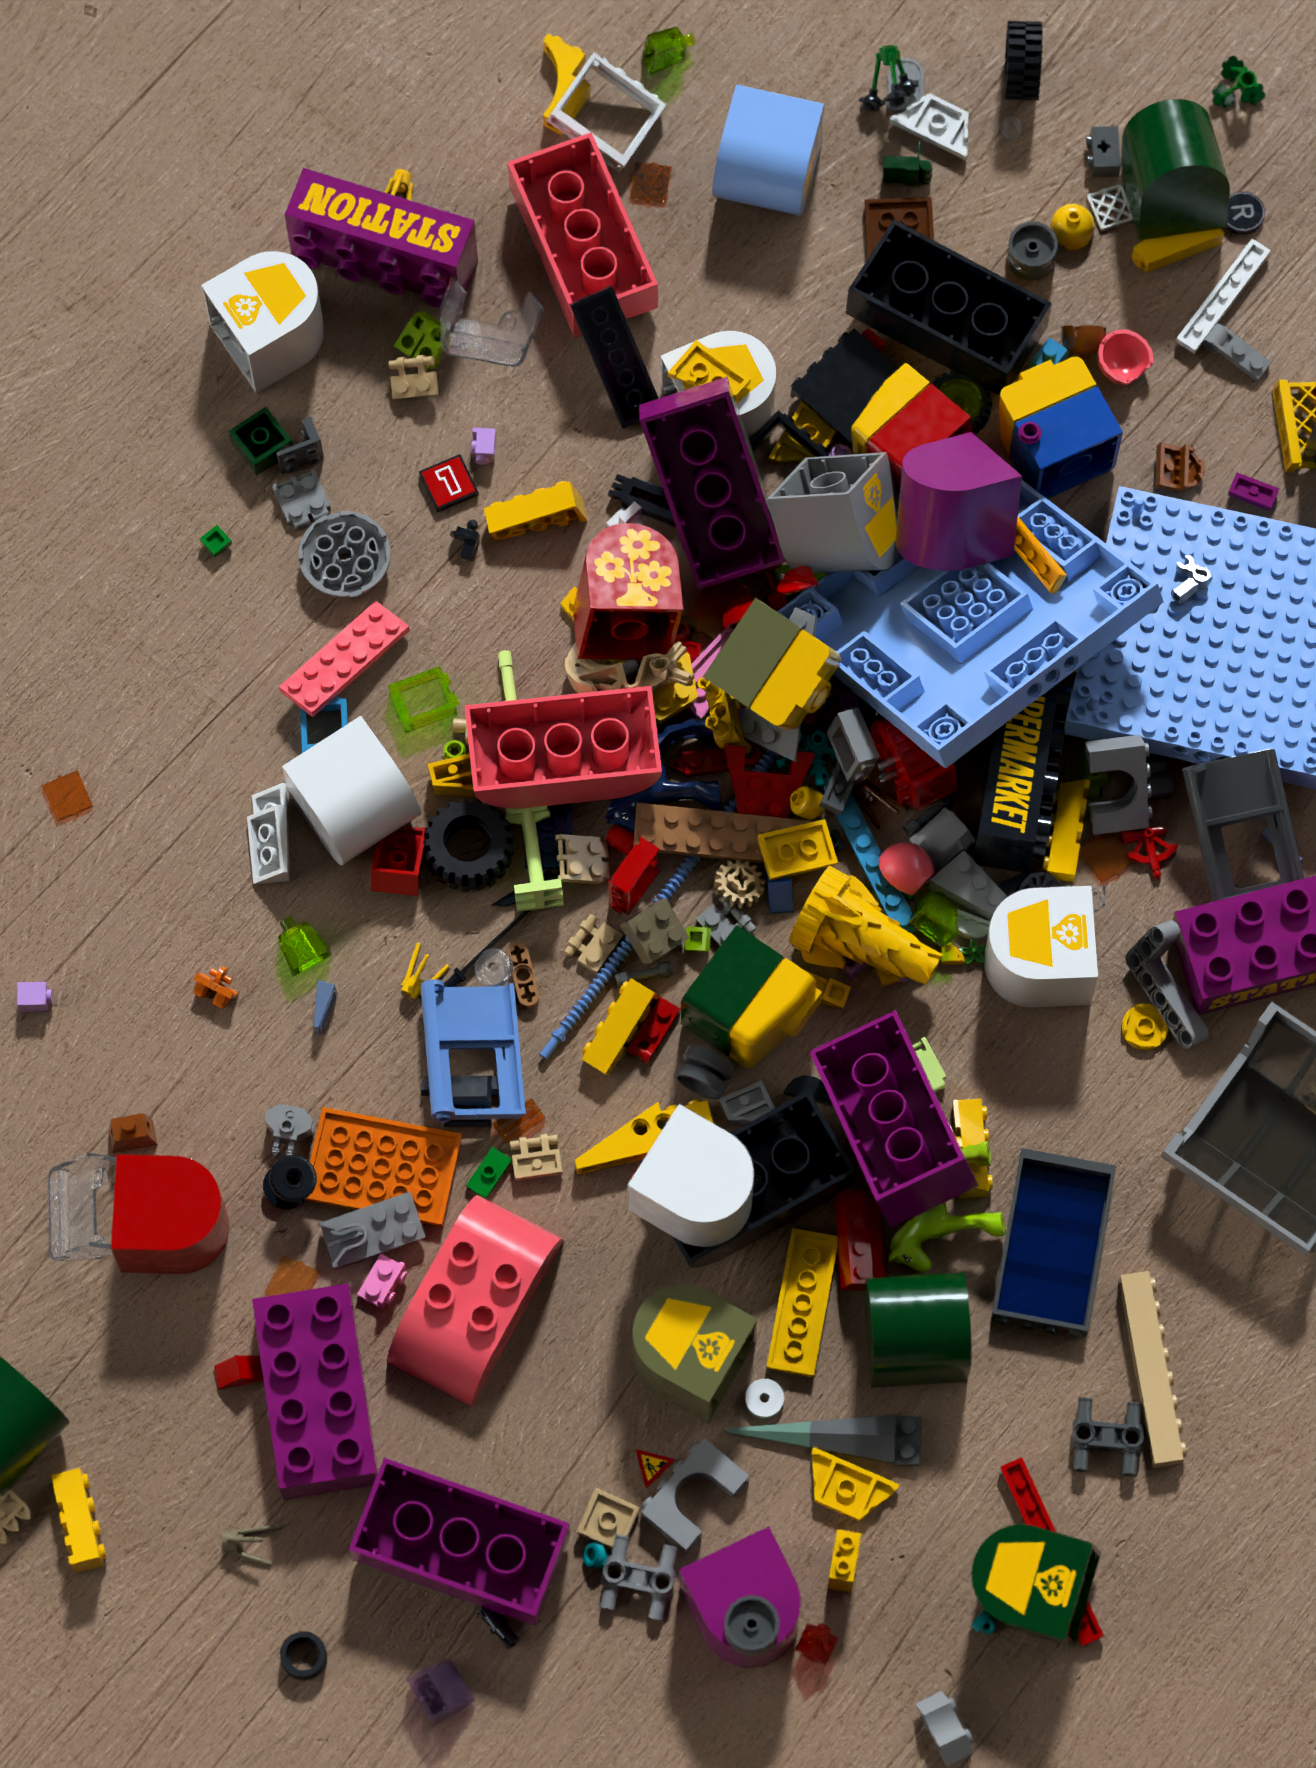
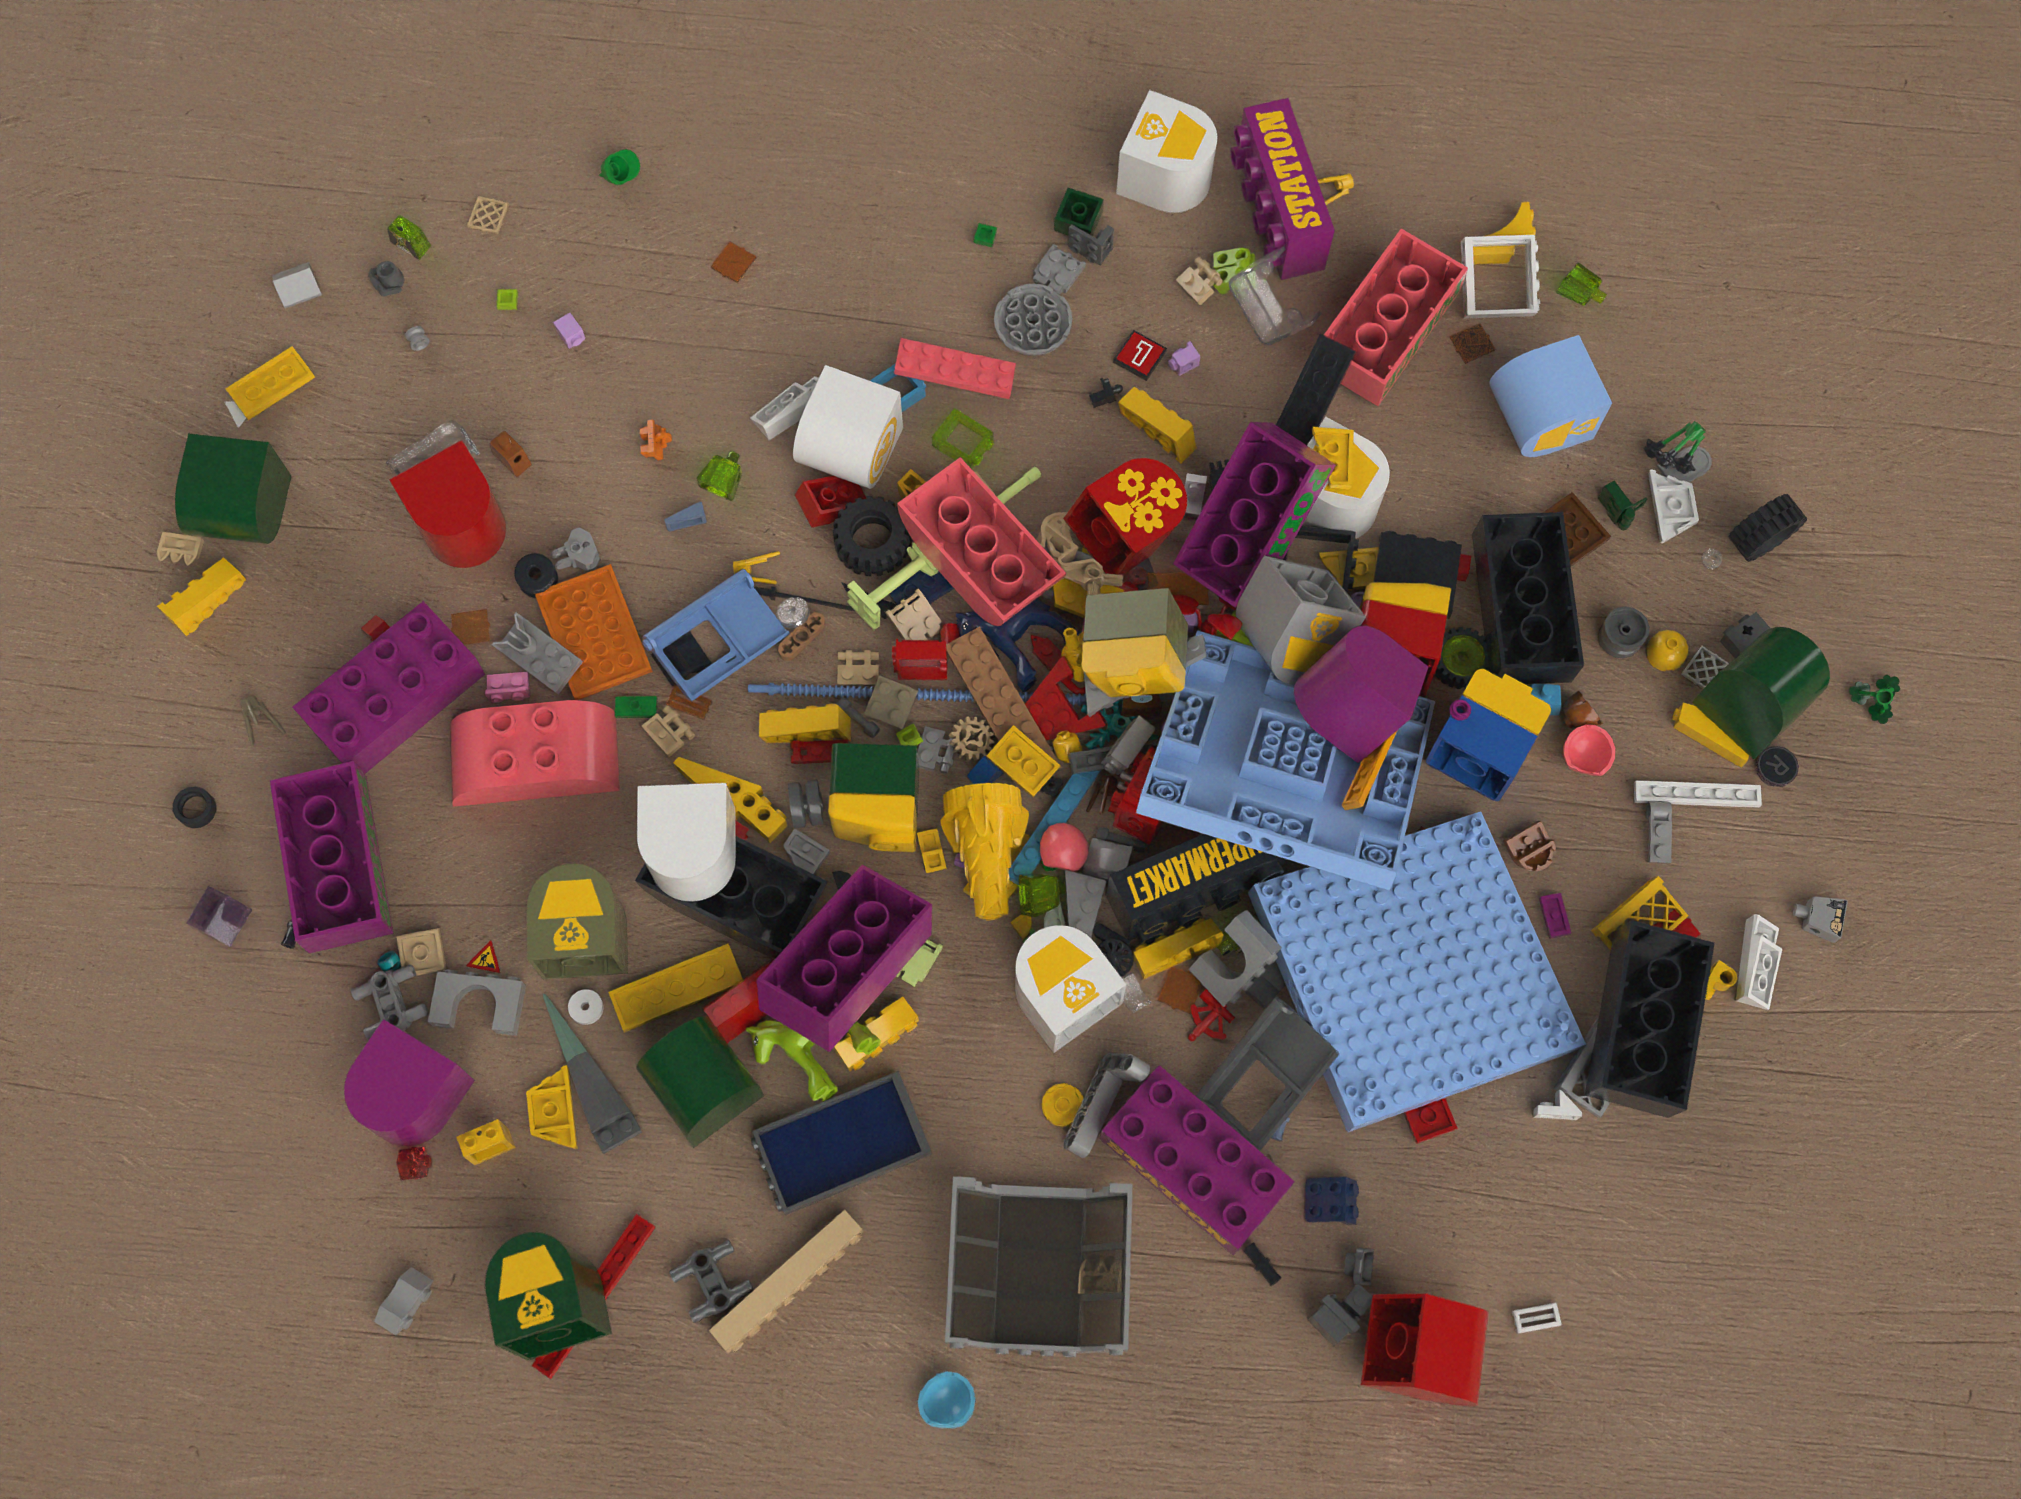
camera: 55 degrees right, 0 degrees up
(756, 1640) = (351, 1090): dark grey wheel -> none
(1197, 579) = (1445, 913): bar -> none

